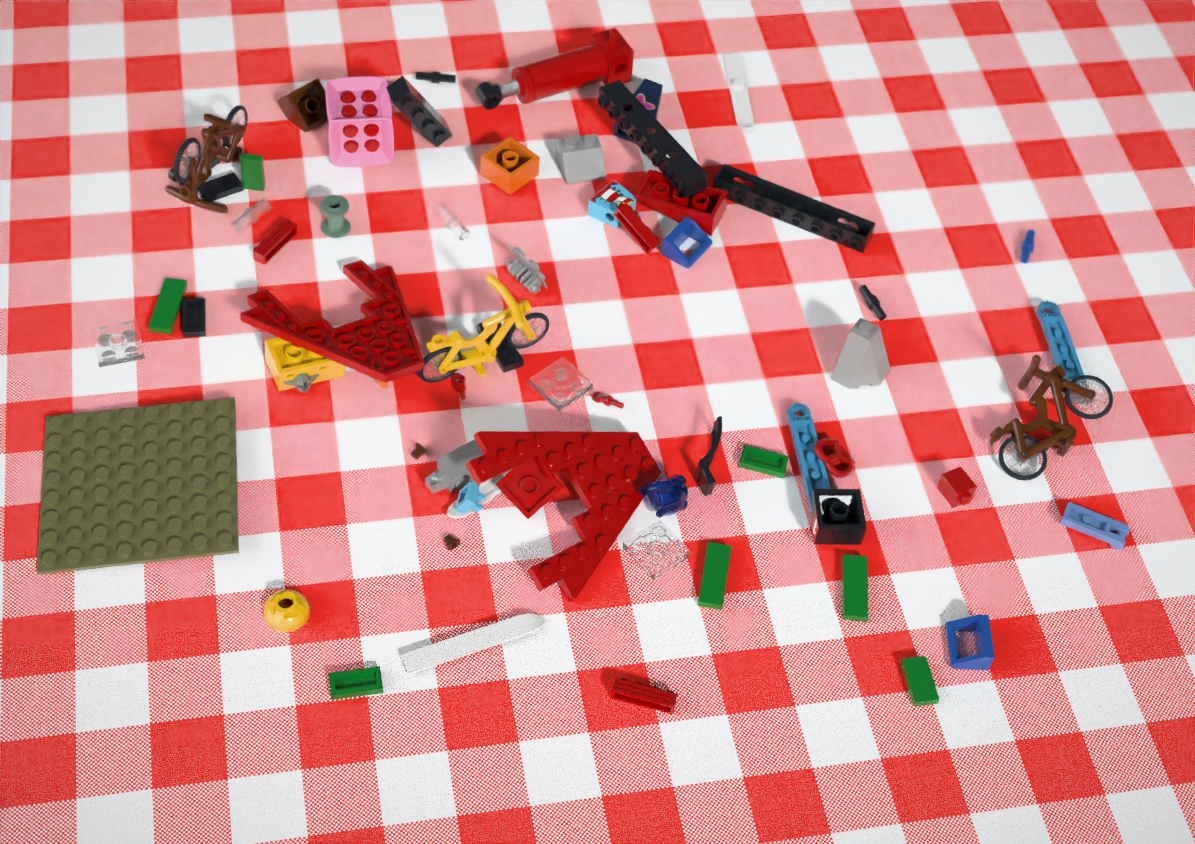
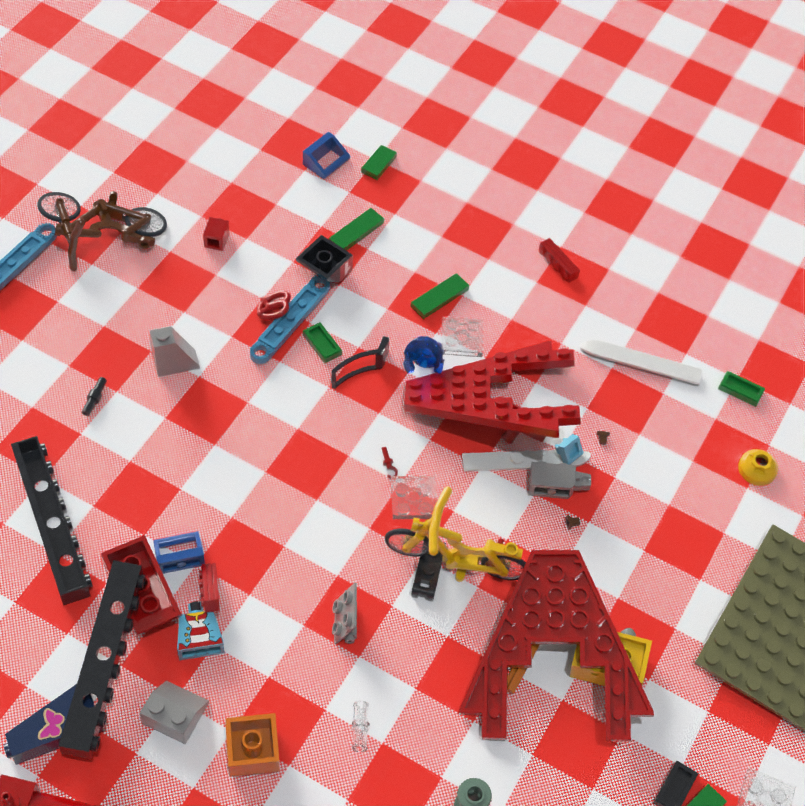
camera: 140 degrees left, 5 degrees up
(1095, 525) = (158, 160): medium blue plate -> none

